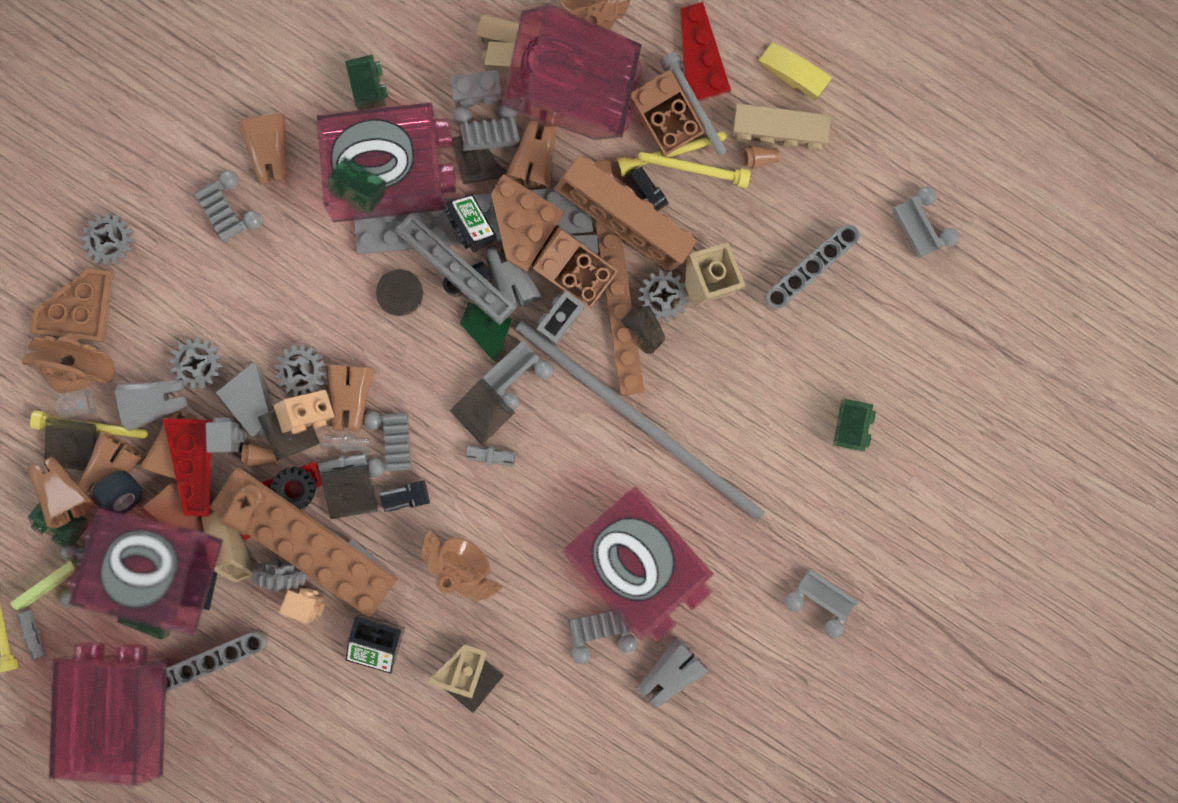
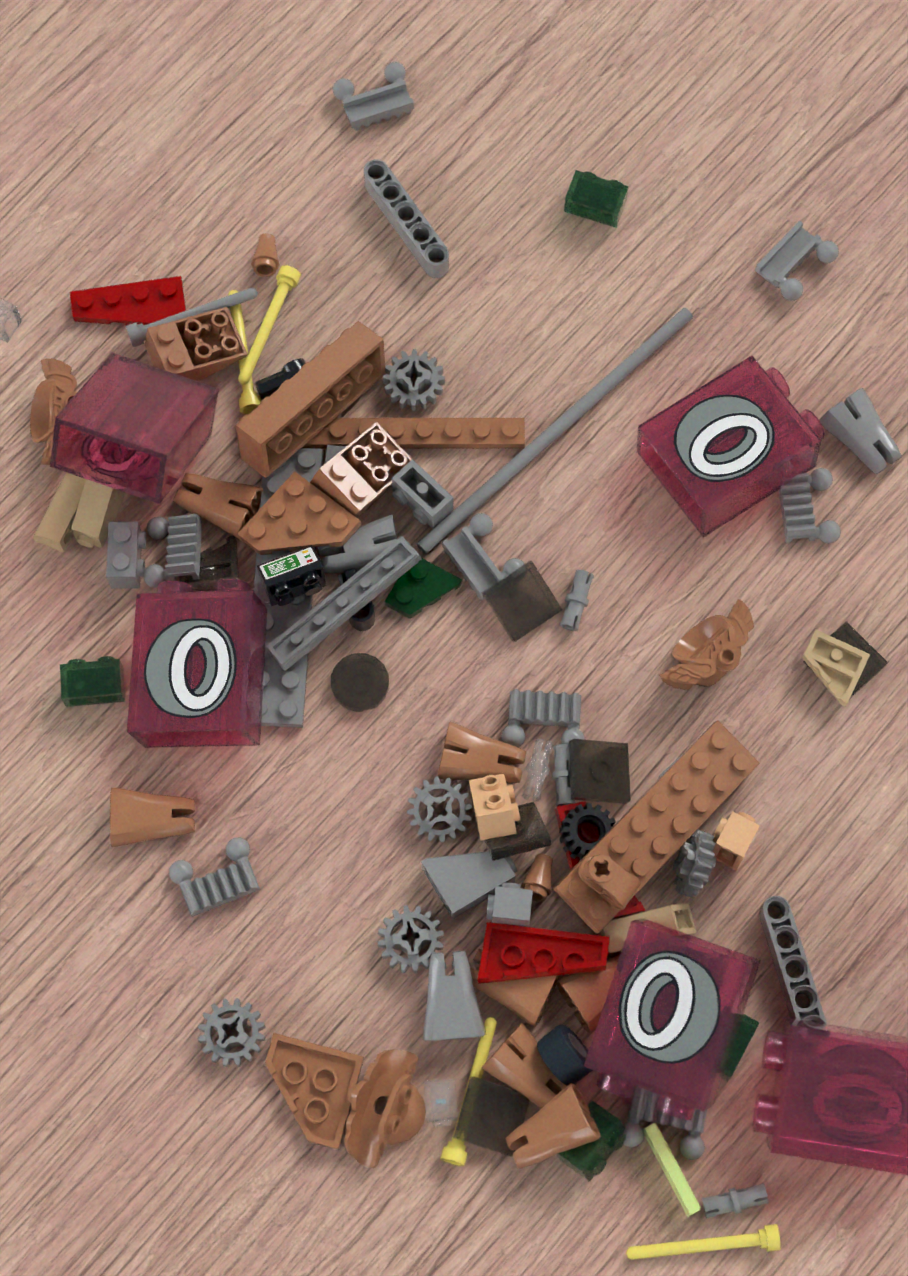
camera: 80 degrees left, 15 degrees down
(356, 185) = (229, 678): clear green brick -> none
(374, 643) = (792, 764): black slope -> none
(410, 496) = (613, 699): black piece -> none
(645, 328) = (449, 401): clear smoke leg -> none
(712, 274) = (400, 317): tan slope -> none
(781, 126) = (235, 228): tan brick -> none
(795, 70) = (173, 203): light yellow slope -> none

